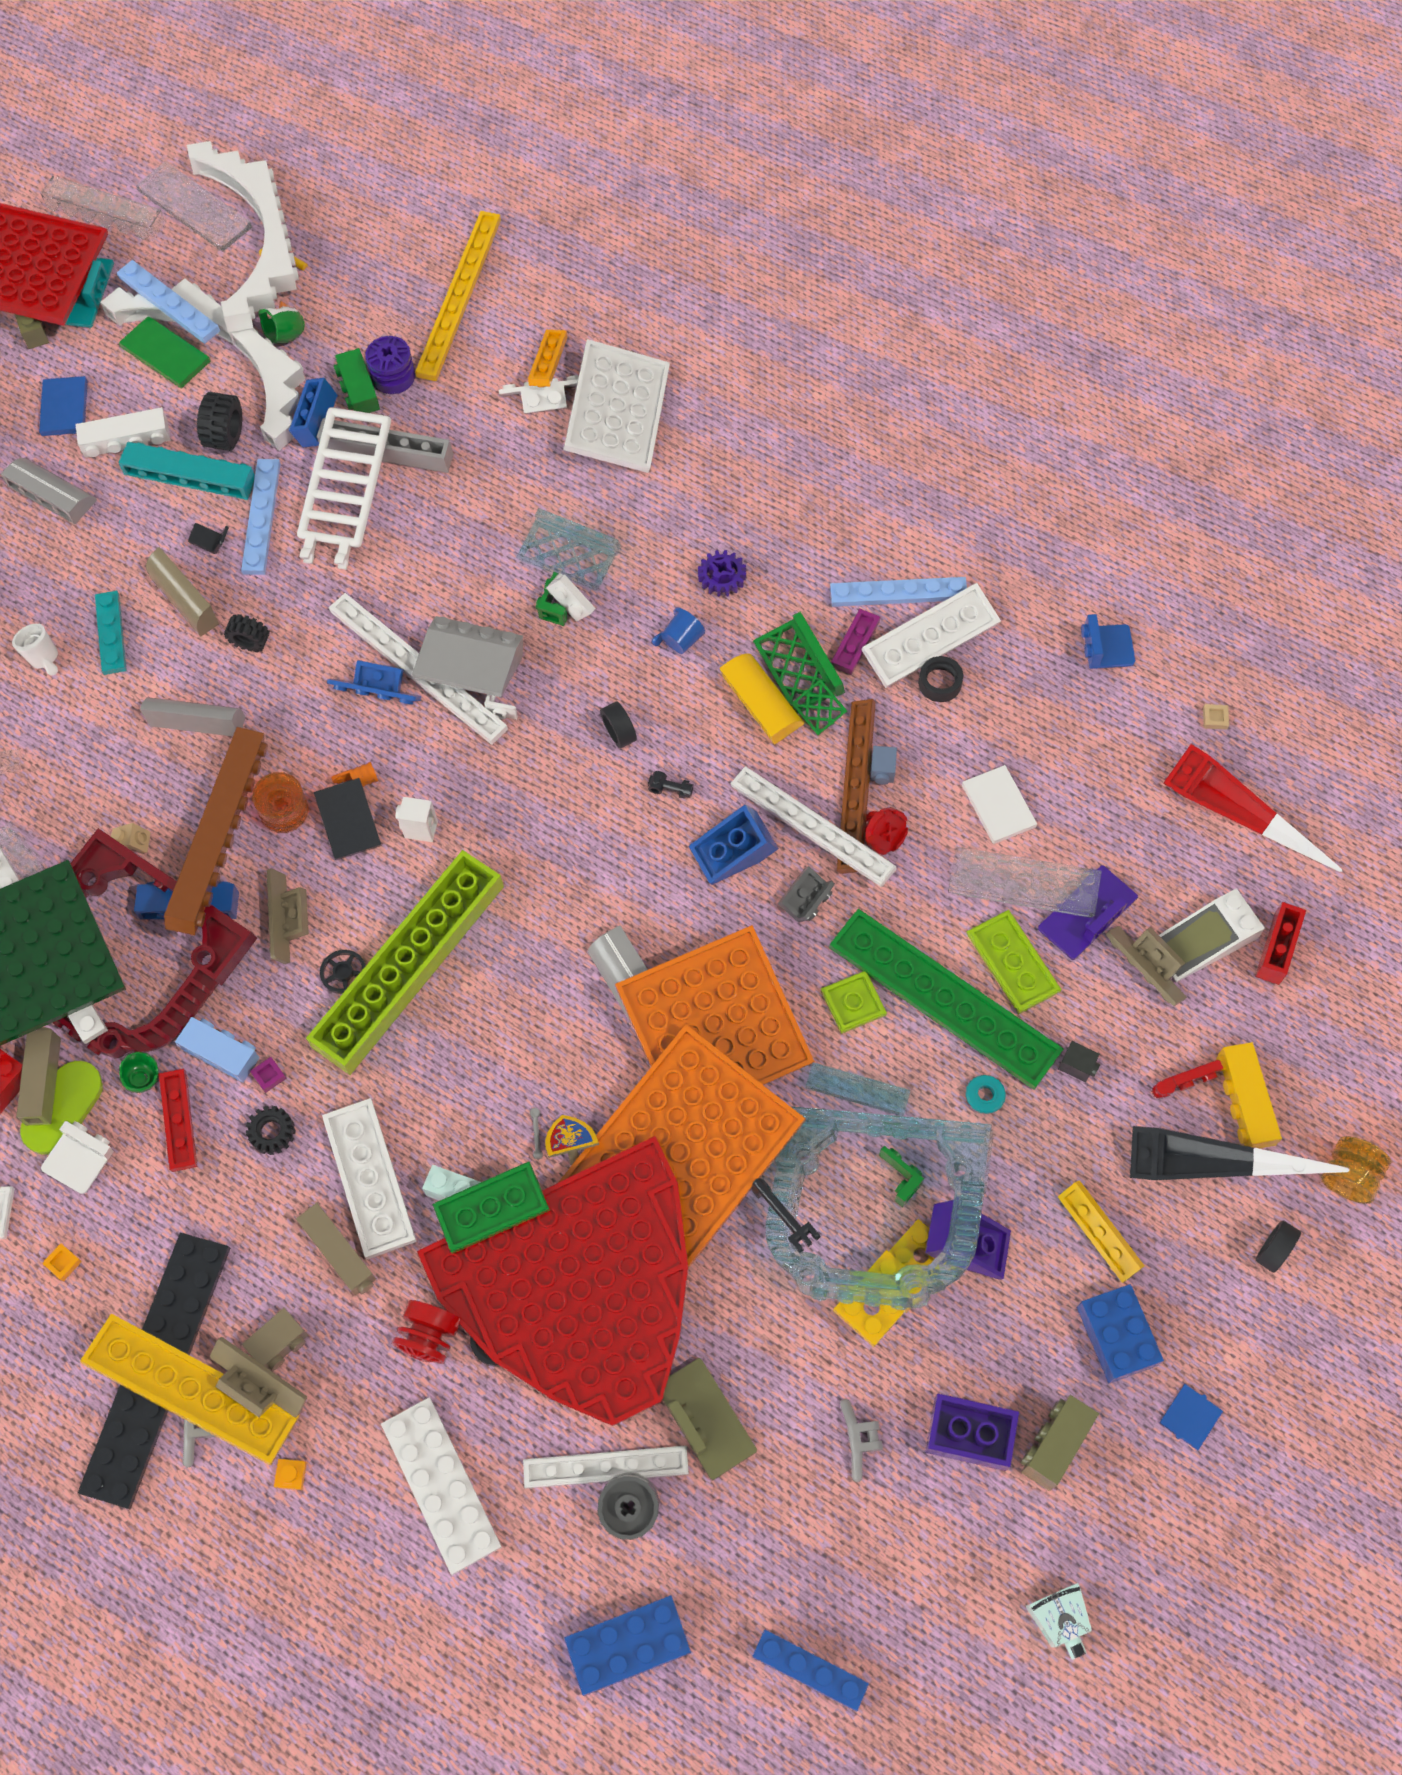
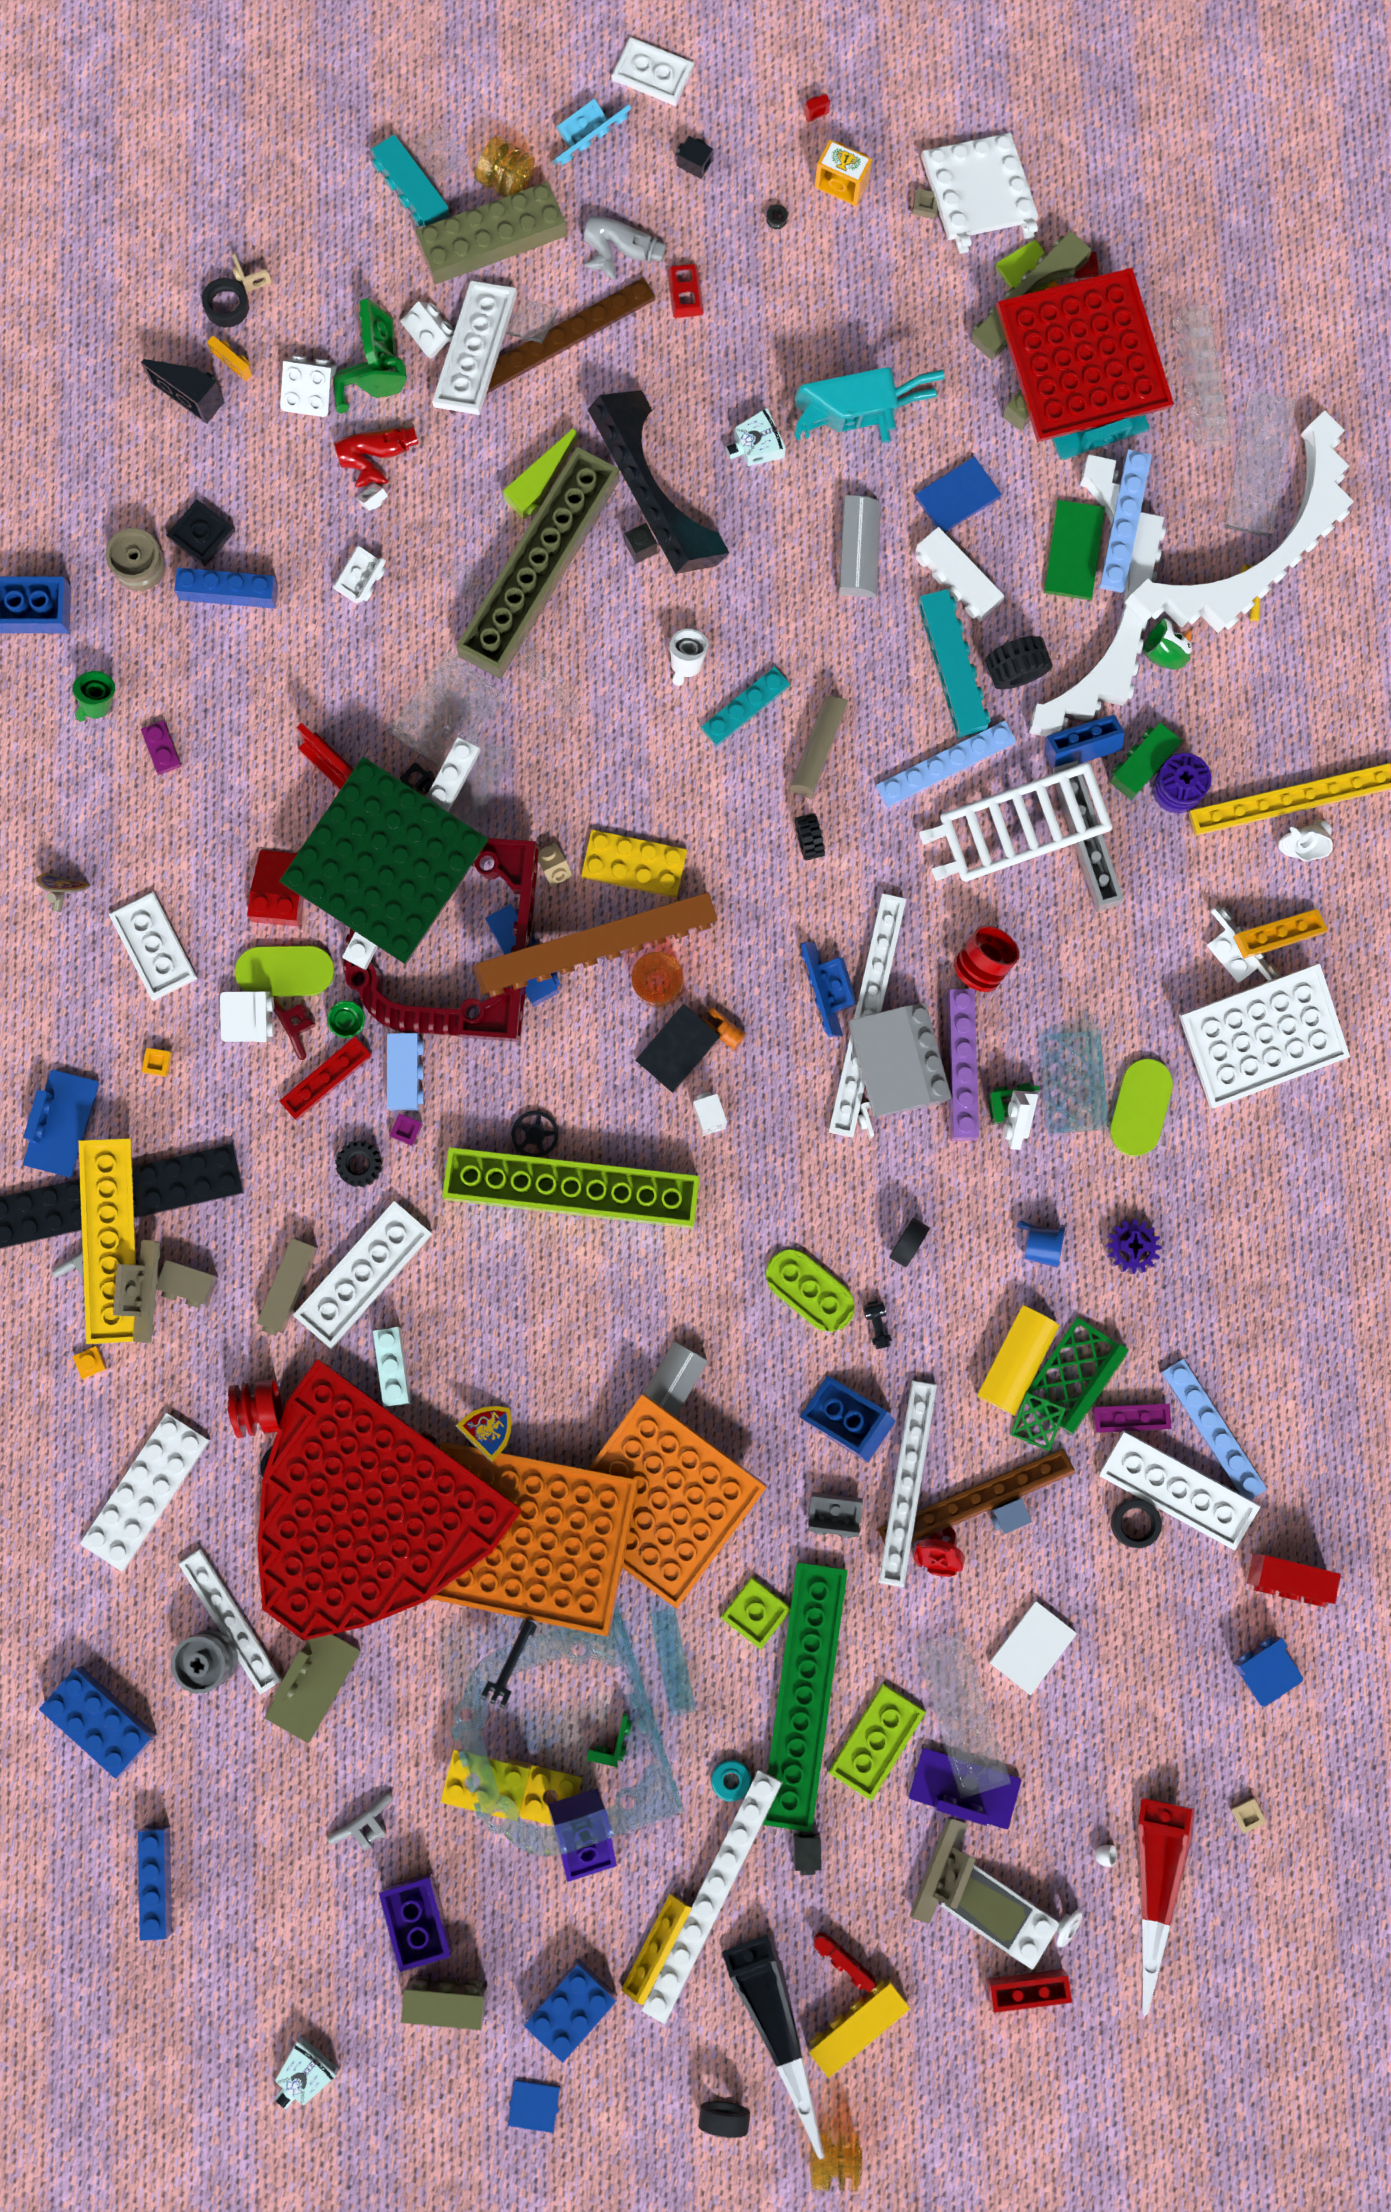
camera: 55 degrees right, 15 degrees up
(38, 1077) = (294, 939): dark tan brick -> none
(55, 1383) = (59, 1123): none -> blue bracket
(116, 1126) = (291, 1030): none -> dark red piece
(174, 778) = (634, 863): none -> yellow plate
(192, 716) = (701, 842): light grey brick -> none
(207, 538) = (892, 731): black bracket -> none
(286, 915) = (557, 1052): dark tan bracket -> none
(430, 555) = (986, 958): none -> red wheel
(490, 1207) = (385, 1402): green tile -> none
(492, 310) = (1308, 842): none -> white hair
(499, 615) = (962, 1065): none -> medium lavender brick
(535, 1113) = (463, 1407): light grey hinge -> none
(610, 823) = (810, 1290): none -> lime tile
(618, 516) = (1141, 1107): none -> lime tile
(1045, 588) = (1293, 1580): none -> red brick
(1078, 1158) = (712, 1896): none -> white plate
(1196, 833) = (1106, 1855): none -> white hinge
(1242, 887) = (1068, 1927): none -> white piece

